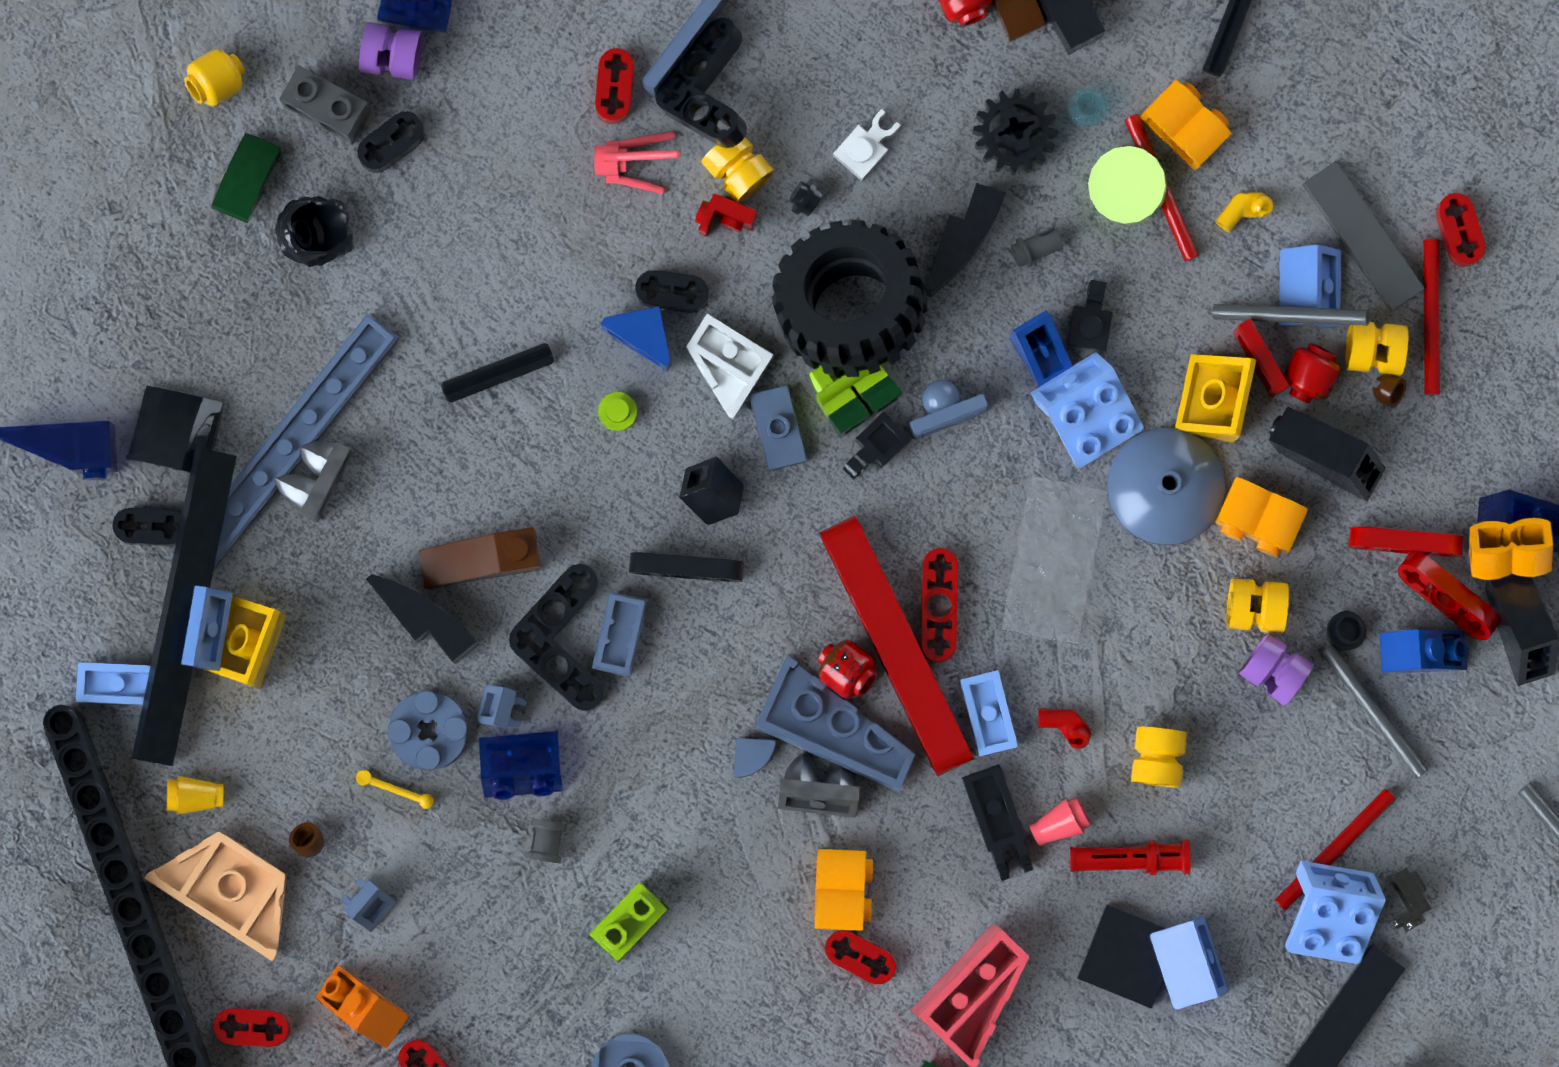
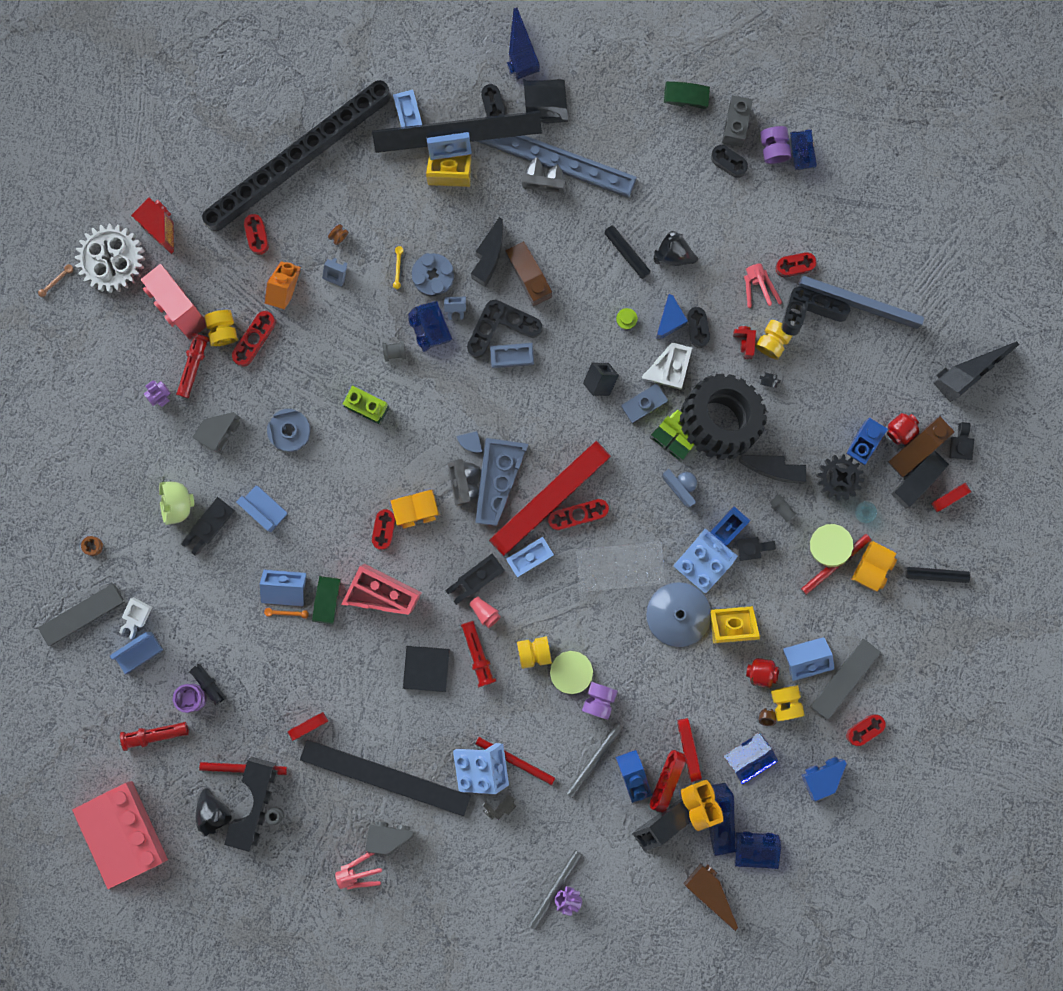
camera: 80 degrees right, 0 degrees up
(193, 795) = (363, 166): yellow cone -> none
(214, 77) = (733, 61): yellow head -> none
(229, 889) = (321, 201): light nougat wing -> none
(301, 878) = (338, 234): none -> dark orange bush
(306, 840) = (358, 231): reddish brown hinge -> none
(314, 230) = (670, 136): black hair -> none
(524, 290) = (674, 251): none -> black hat
(686, 567) = (557, 378): black beam -> none
(847, 669) = (530, 476): red head -> none
(864, 149) = (805, 402): white plate -> none
(879, 442) = (652, 458): black plate -> none
(966, 67) = (866, 440): none -> blue slope
(1069, 724) = (537, 601): red arm -> none
(1189, 963) = (432, 701): panel -> none
(1211, 703) = (571, 672): none -> yellowish green tile
(1244, 206) = (841, 611): yellow arm -> none
(1261, 517) = (677, 668): light orange brick -> none
(1265, 365) = (761, 644): red tile -> none
(1271, 605) = (631, 688): yellow wheel -> none
(1291, 314) = (797, 677): dark grey bar -> none
(1327, 452) = (723, 693): black slope -> none
(1346, 630) = (632, 732): black plate -> none
(1431, 317) = (813, 728): red bar -> none
(1450, 440) = (751, 758): none -> clear blue panel
(1525, 327) = (825, 779): none -> blue slope

